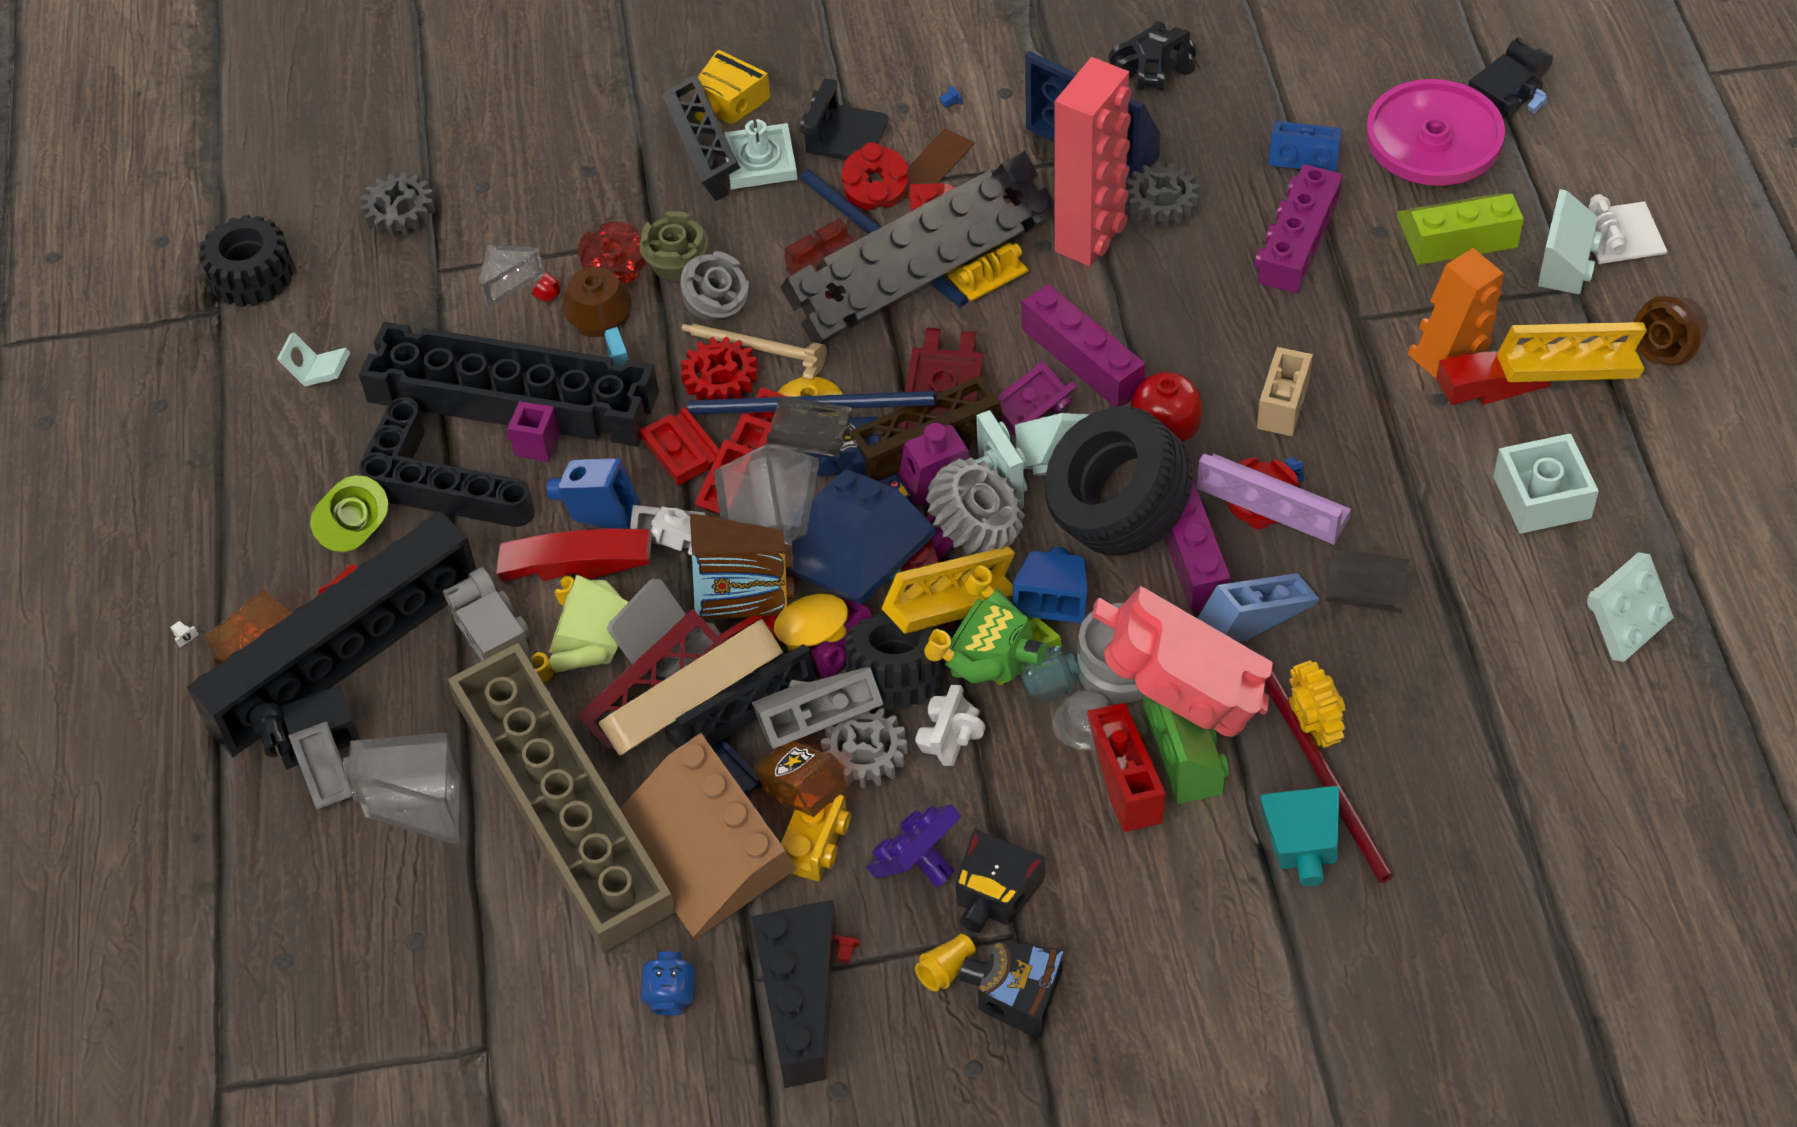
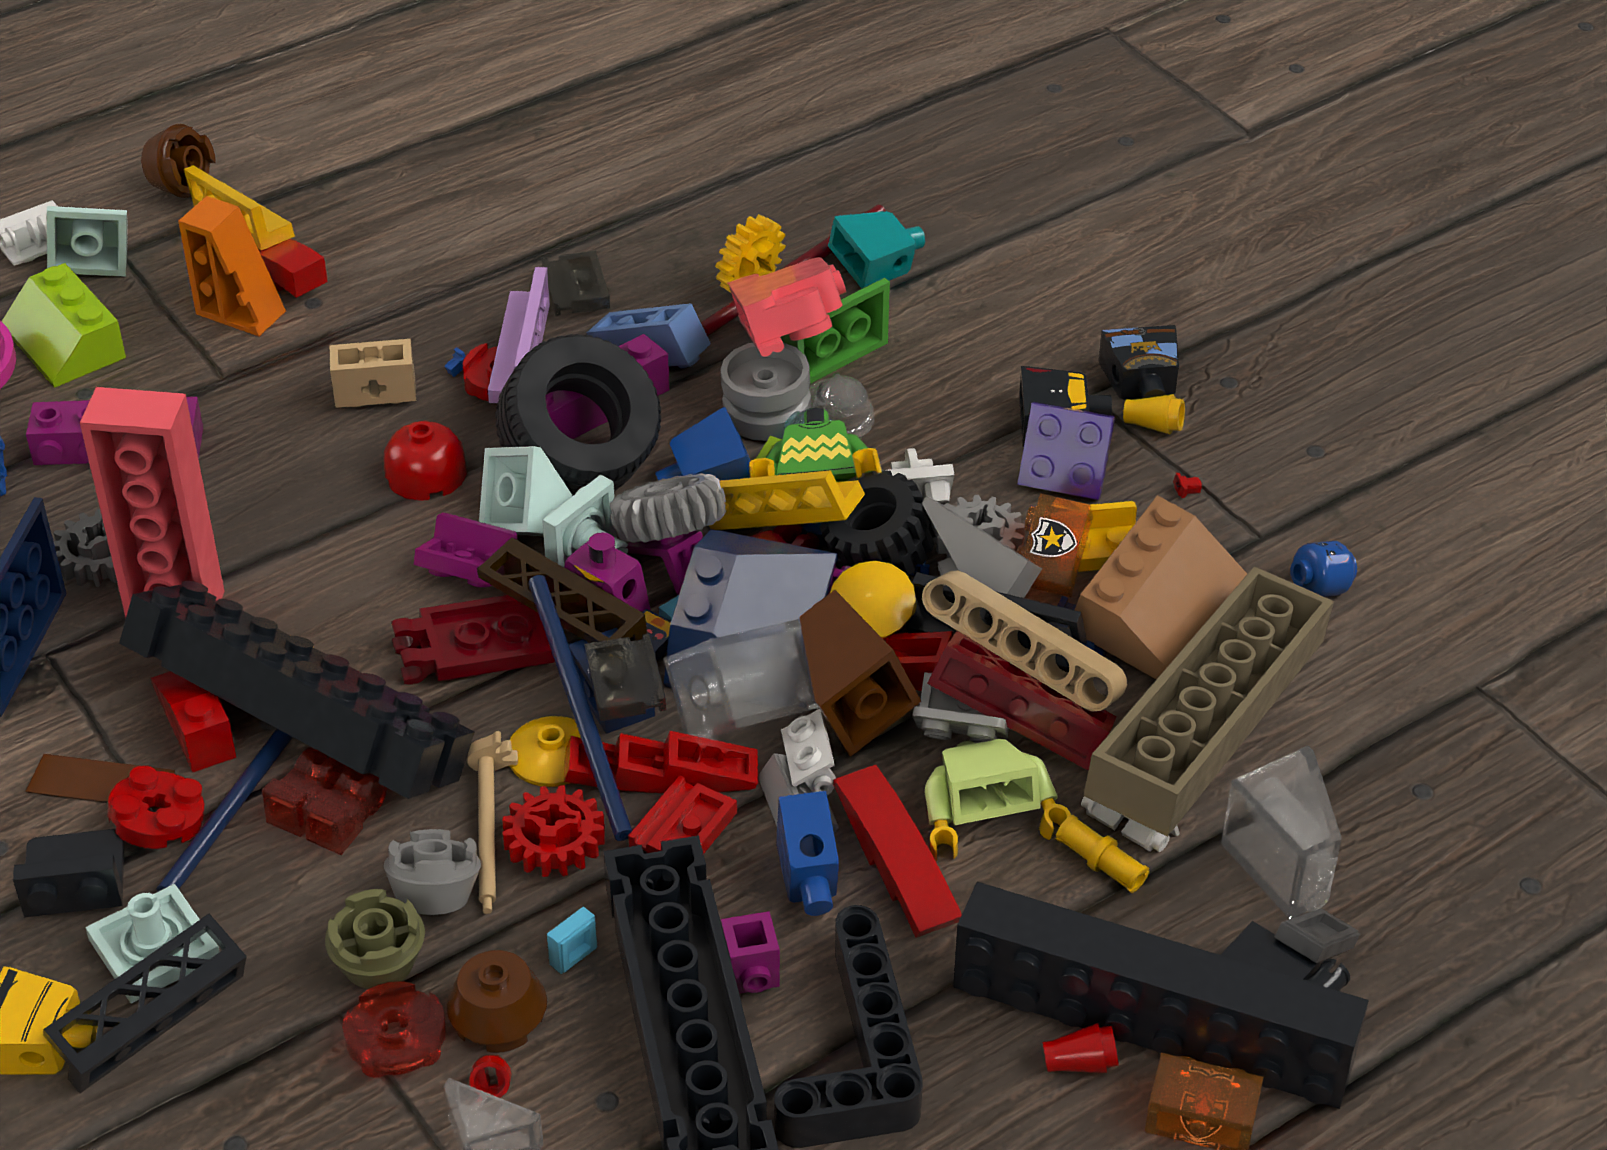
camera: 120 degrees left, 10 degrees down
(349, 513) = (980, 1089): lime piece -> none
(485, 616) = (1045, 867): light grey hinge -> none
(797, 976) = (1258, 483): black wedge -> none
(1082, 345) = (369, 538): magenta brick -> none
(1126, 768) = (895, 348): red slope -> none
(1545, 483) = (410, 196): light aqua brick -> none
(1630, 607) = (530, 126): light aqua plate -> none

